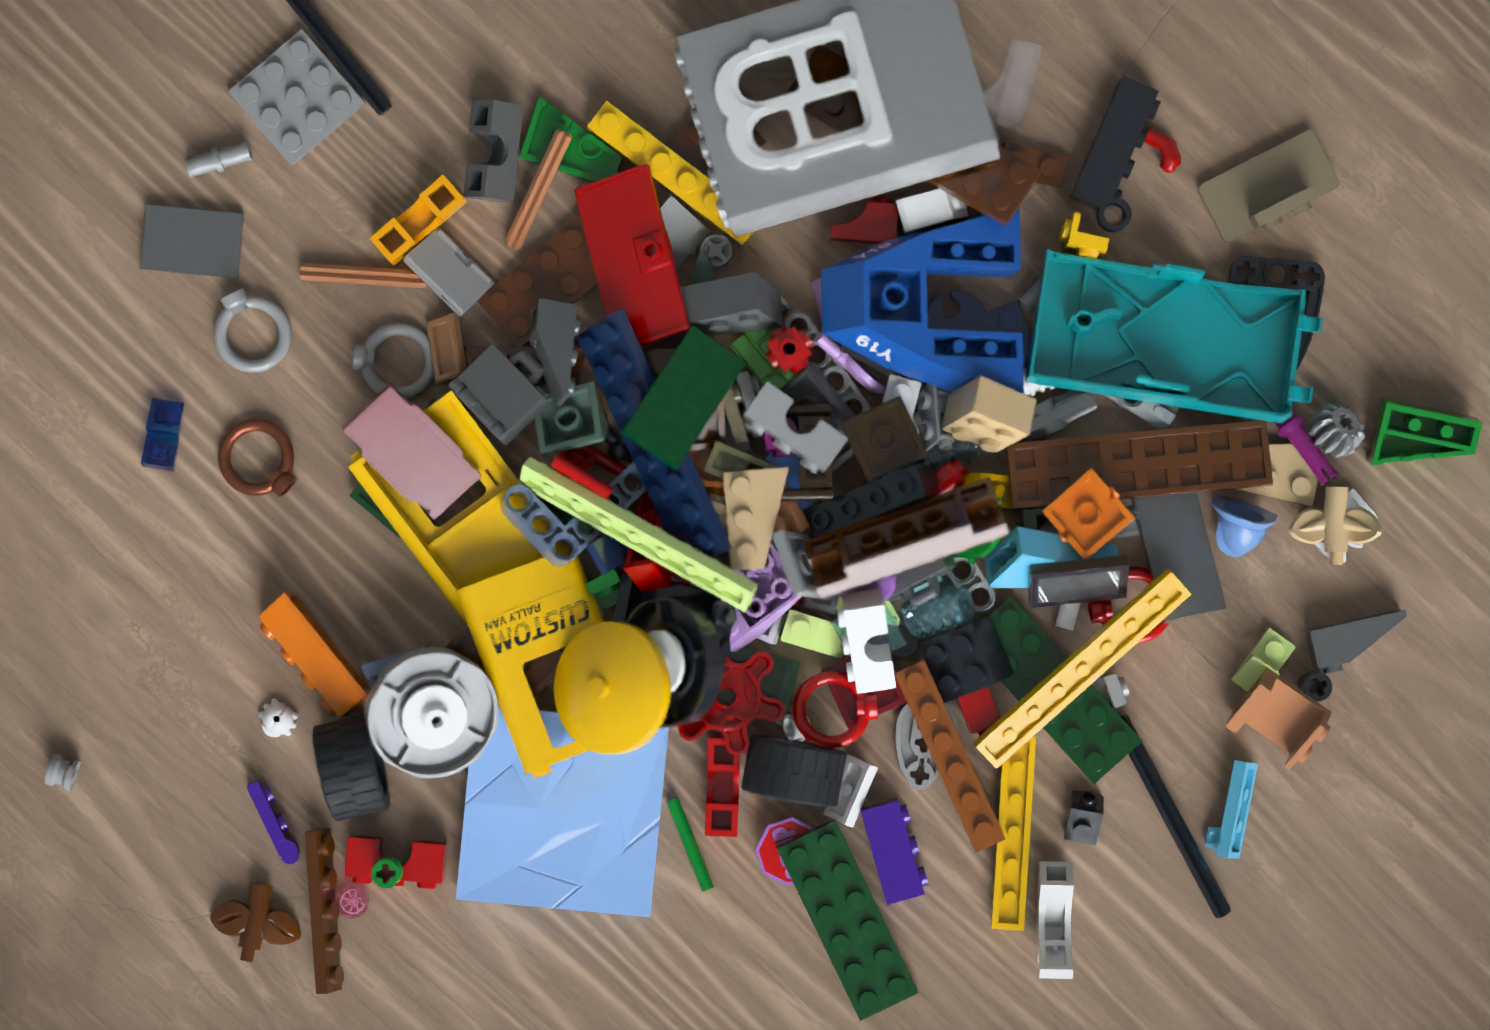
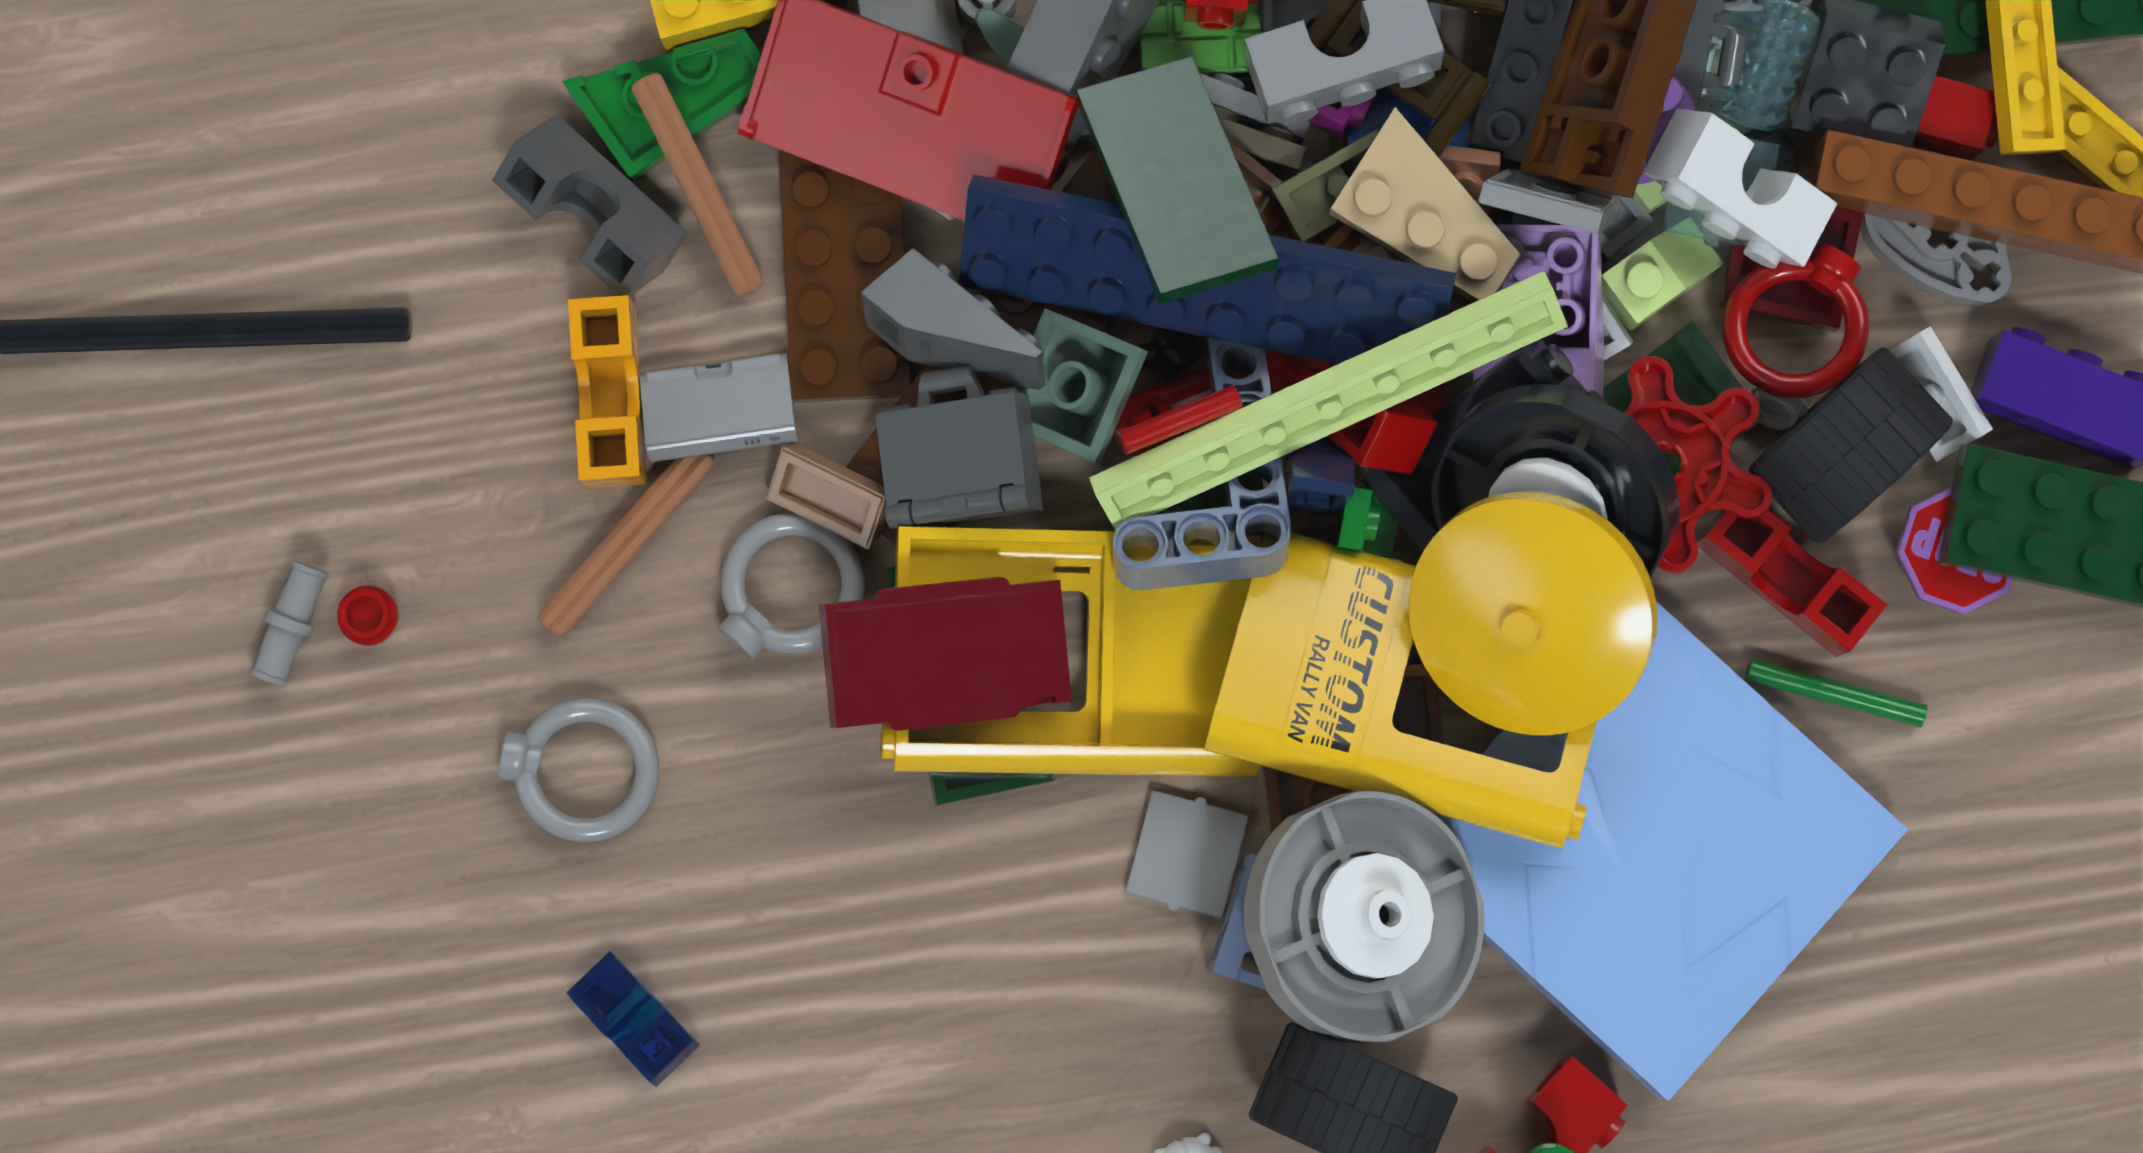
camera: 55 degrees left, 5 degrees down
(192, 241) = (379, 756): dark grey tile -> none
(247, 189) = (367, 615): none -> red plate
(280, 480) = (835, 892): copper piece -> none
(296, 97) = (288, 440): light grey plate -> none
(314, 653) = (1138, 1038): orange slope -> none
(410, 617) = (1187, 854): none -> light grey piece

